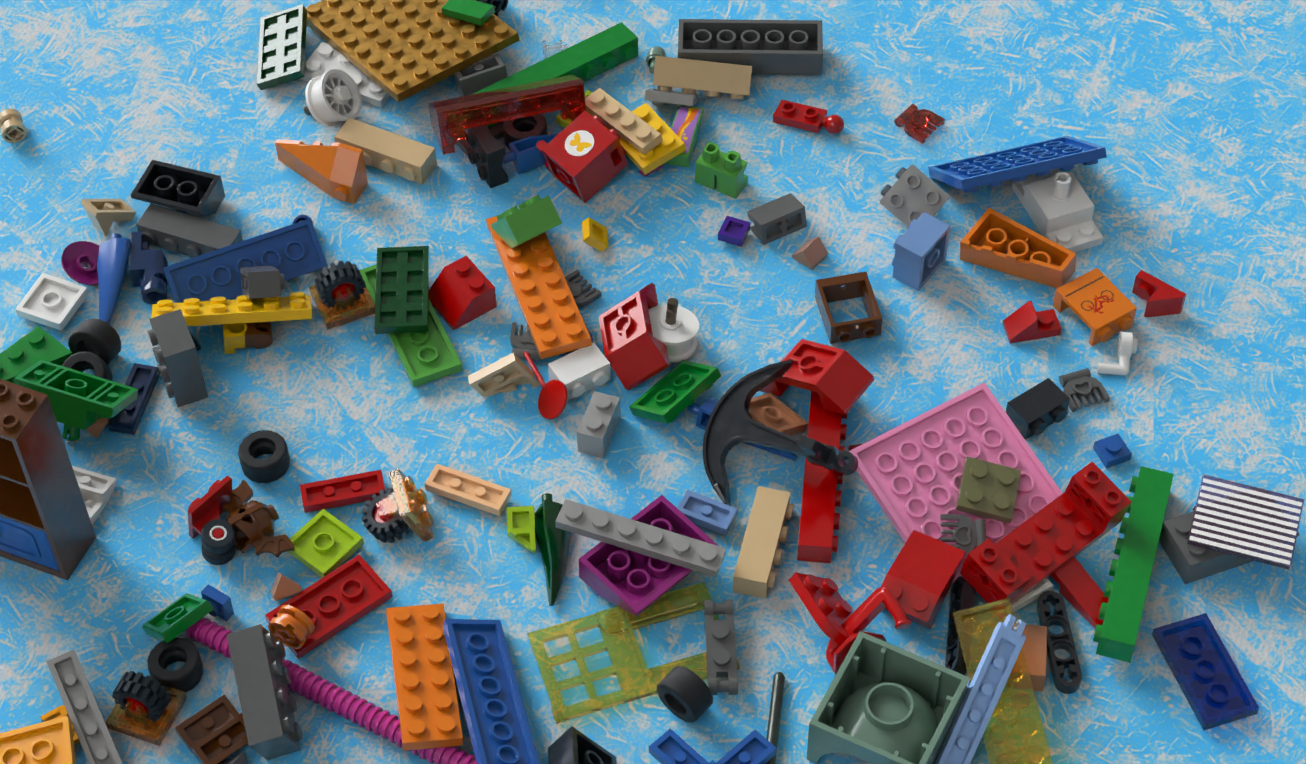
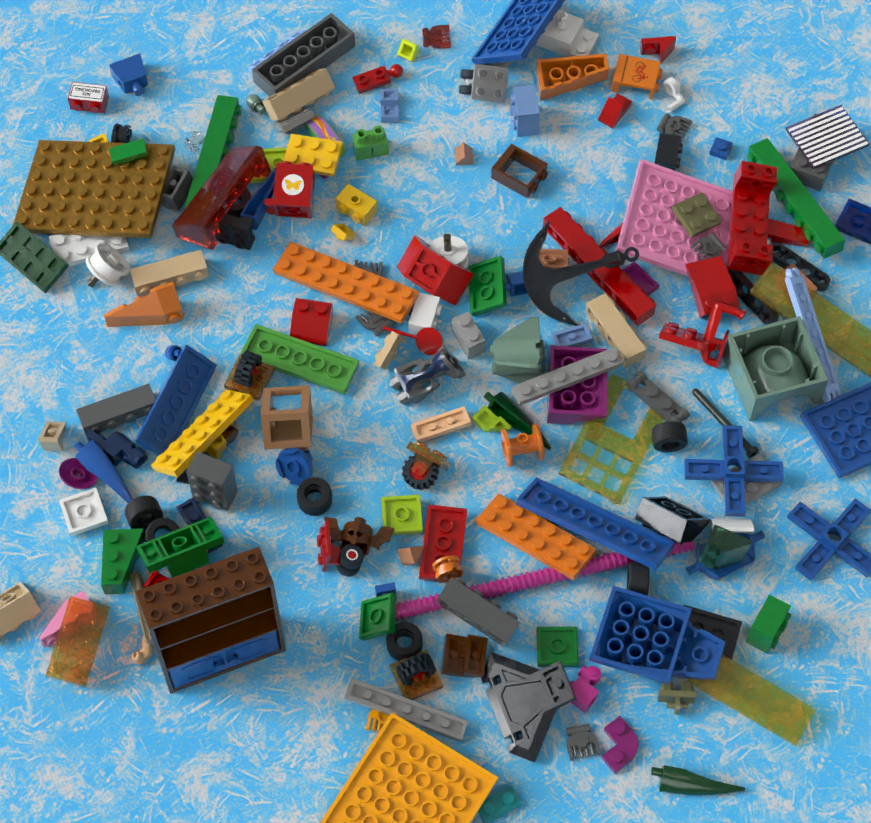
camera: 45 degrees left, 10 degrees up
(180, 188) = (82, 388): black slope -> none
(261, 282) = (202, 402): dark grey brick -> none
(278, 409) = (294, 465): none -> blue tile
(300, 360) = (287, 427): none -> medium nougat piece
(341, 491) = (377, 479): red plate -> none
(402, 290) = (282, 344): dark green plate -> none
(495, 420) = (413, 383): none -> dark grey hips
(515, 569) = (522, 444): none -> orange hose
(531, 220) = (308, 252): bright green slope -> none
(622, 476) = (519, 352): none -> sand green brick
(623, 121) = (296, 153): tan plate -> none
(638, 219) = (356, 205): none -> yellow brick
(734, 231) = (413, 173): dark purple plate -> none
(777, 218) = (427, 148): dark grey hinge -> none
(790, 153) = (389, 105): none -> medium blue slope
(824, 370) = (563, 213): red slope -> none
(855, 514) = (641, 278): none -> magenta tile
(871, 114) = (408, 50): none -> neon yellow slope

